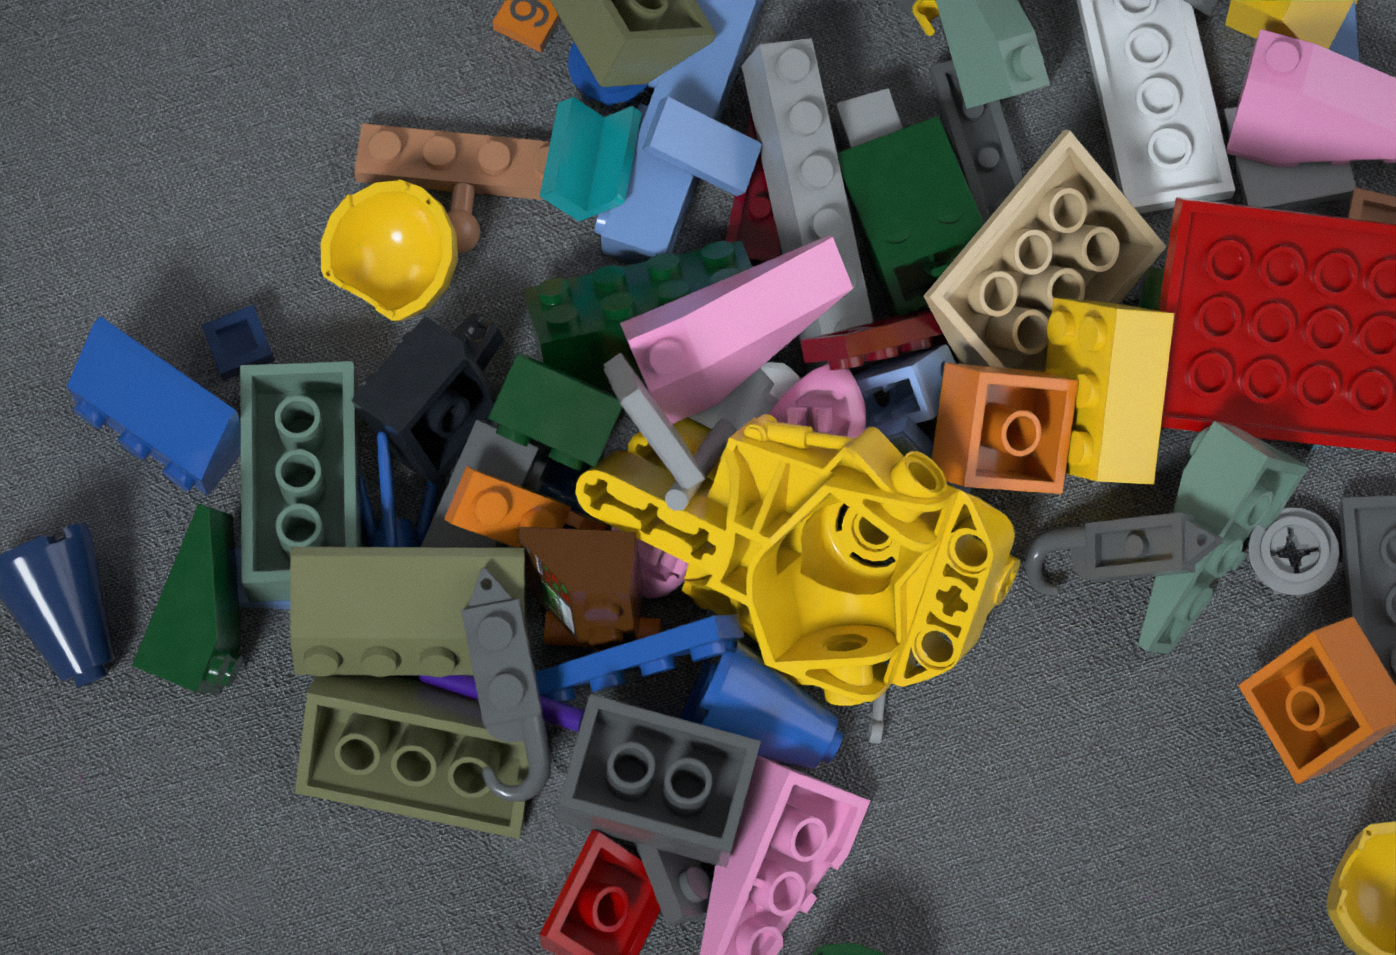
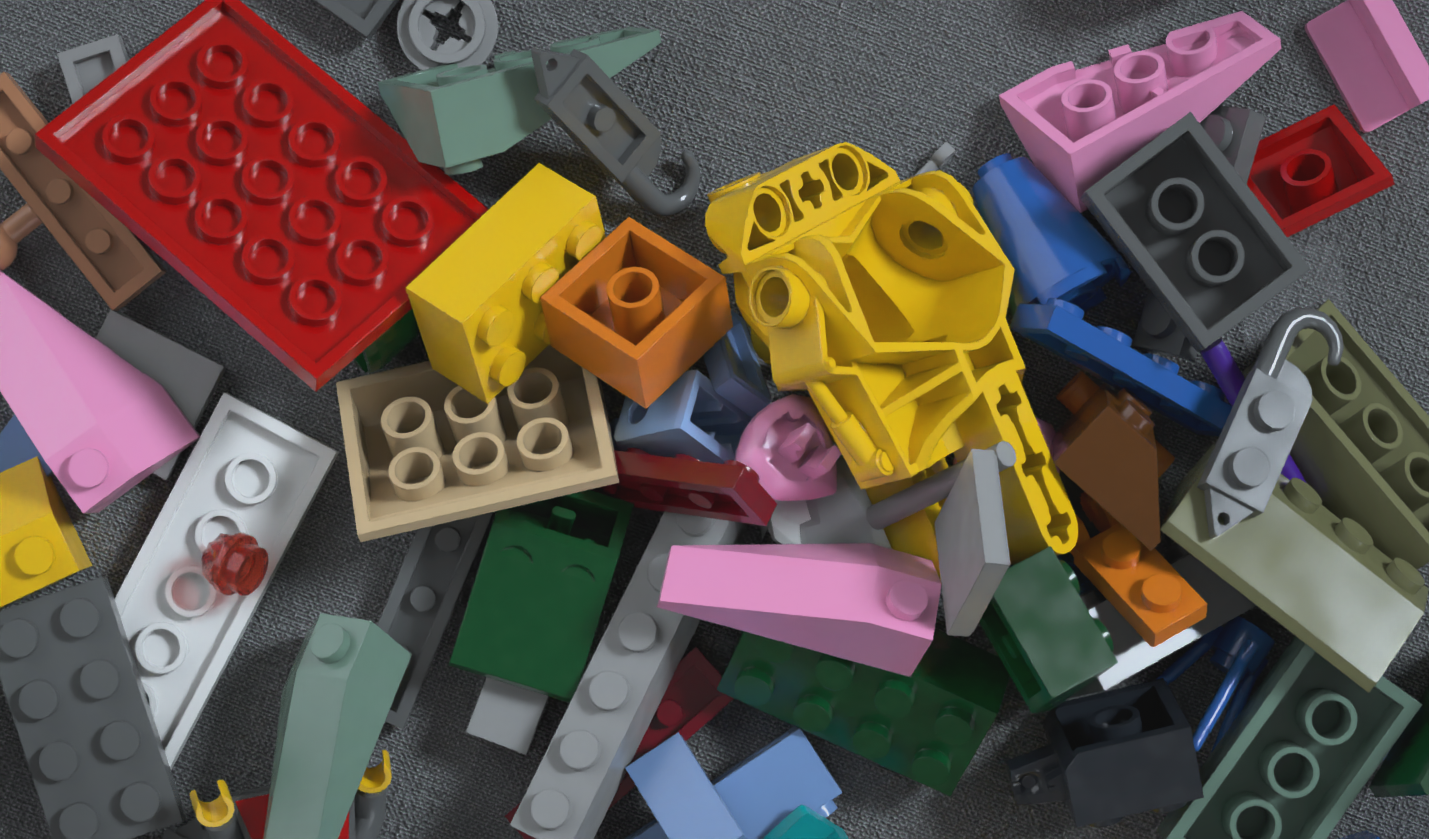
camera: 145 degrees left, 15 degrees up
(1132, 79) = (234, 564): none -> clear red plate

